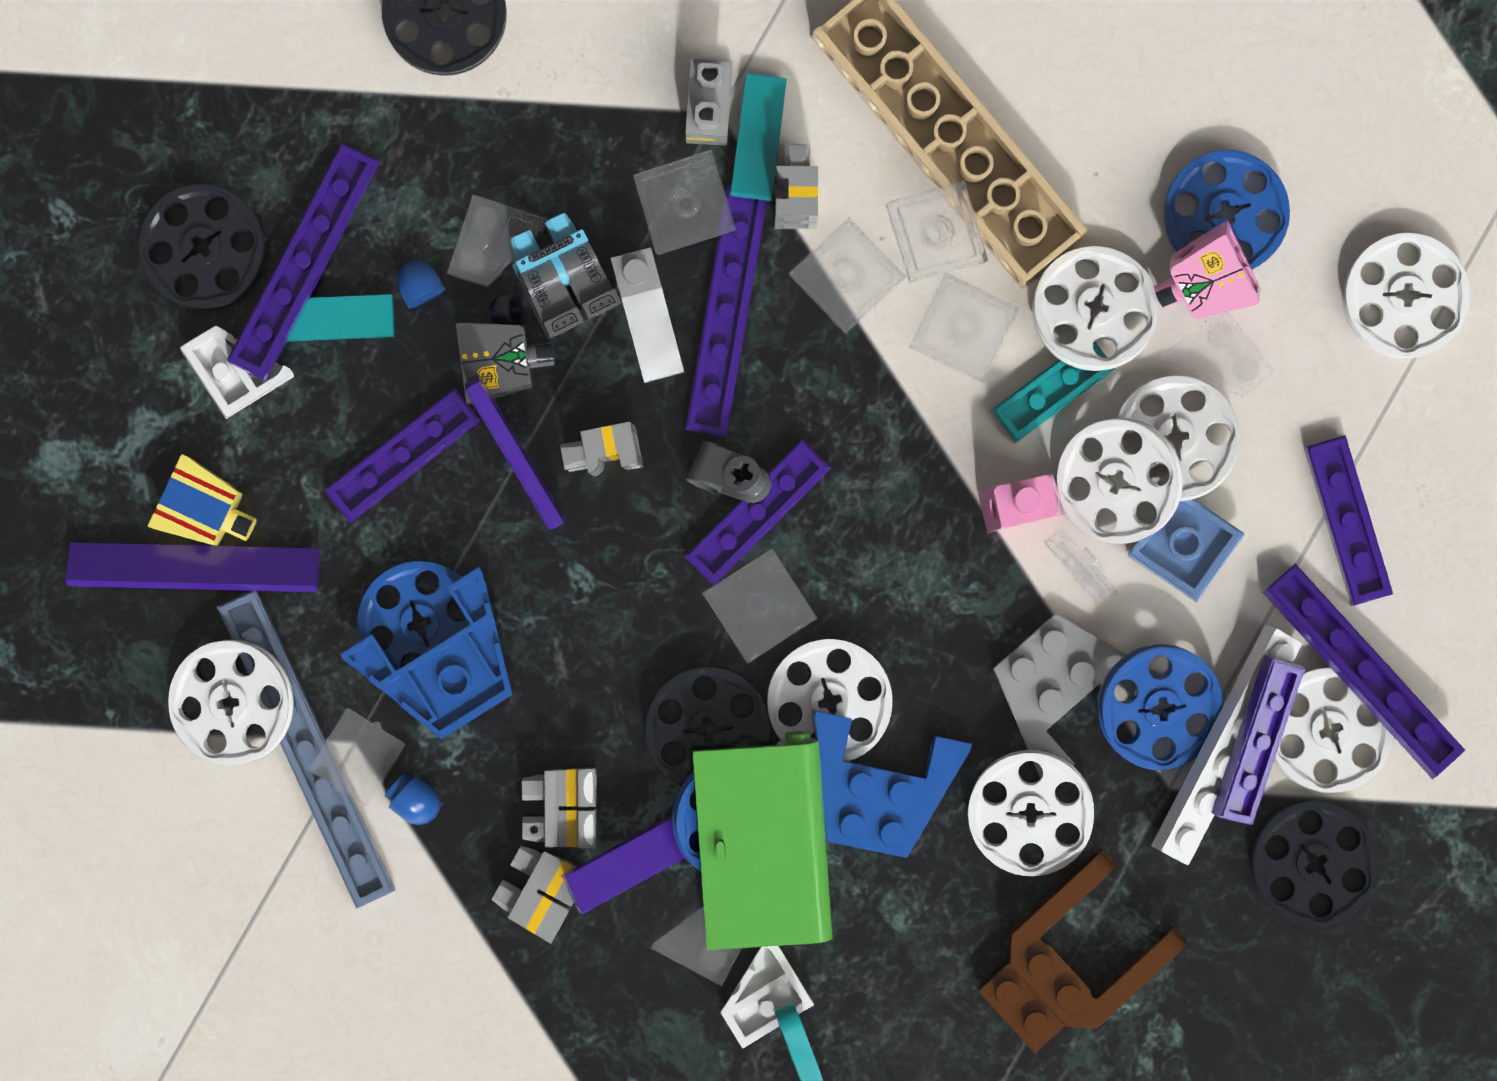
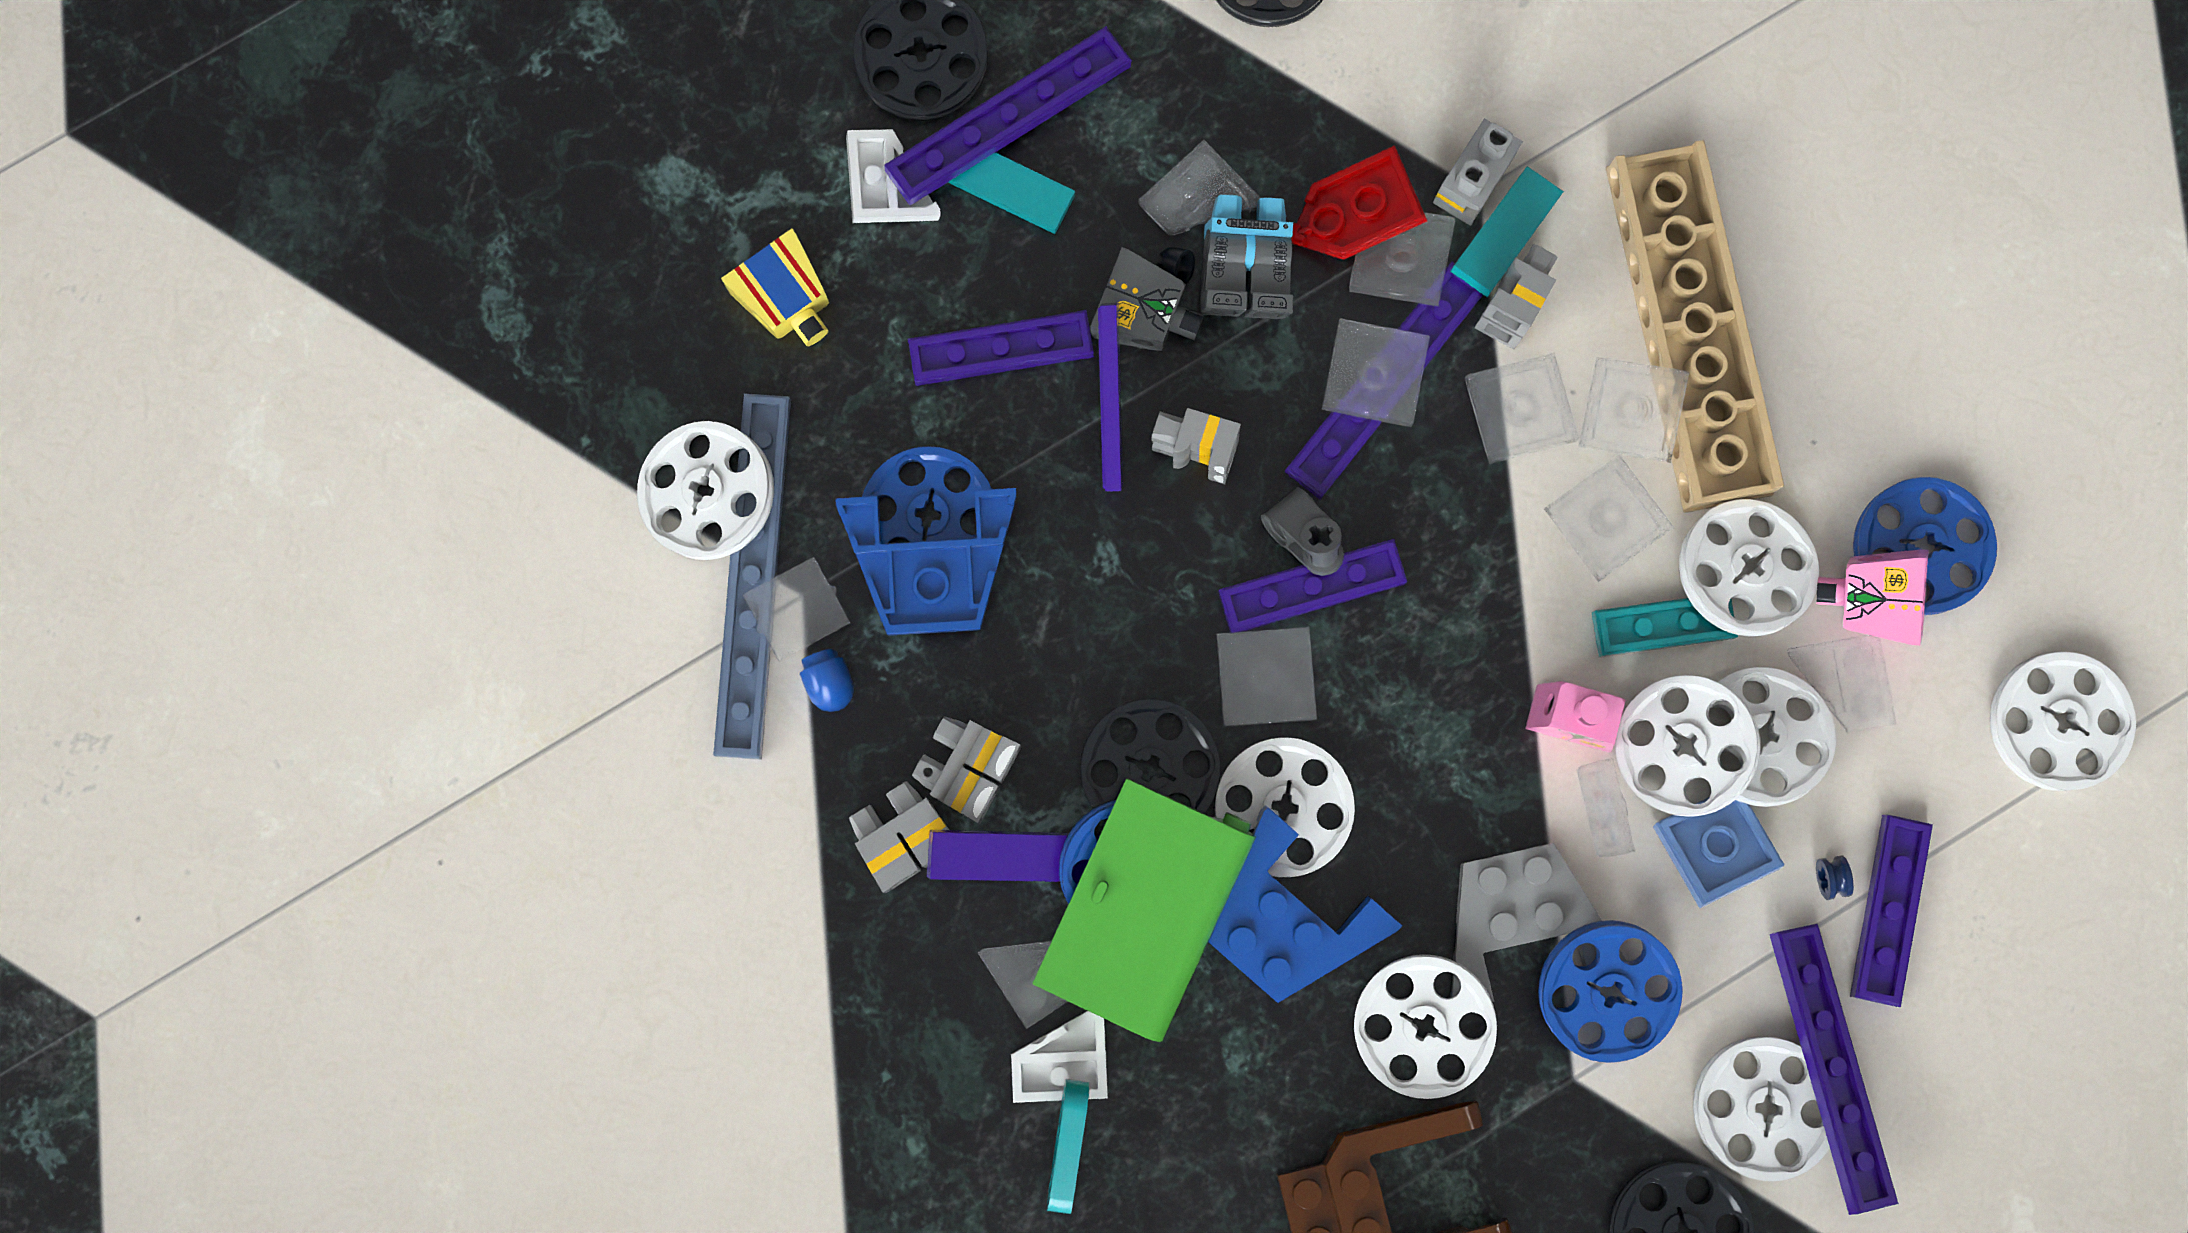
camera: 30 degrees right, 5 degrees down
(193, 567) = (743, 344): dark purple tile -> none
(418, 283) = (1106, 194): blue piece -> none
(629, 183) = (1359, 207): none -> red tile
(647, 315) = (1309, 339): slope -> none
(714, 314) = (1375, 372): none -> clear plate
(1195, 801) = (1656, 1065): white plate -> none
(1258, 740) = (1692, 1078): tile -> none
(1289, 520) = (1834, 877): none -> dark blue bush

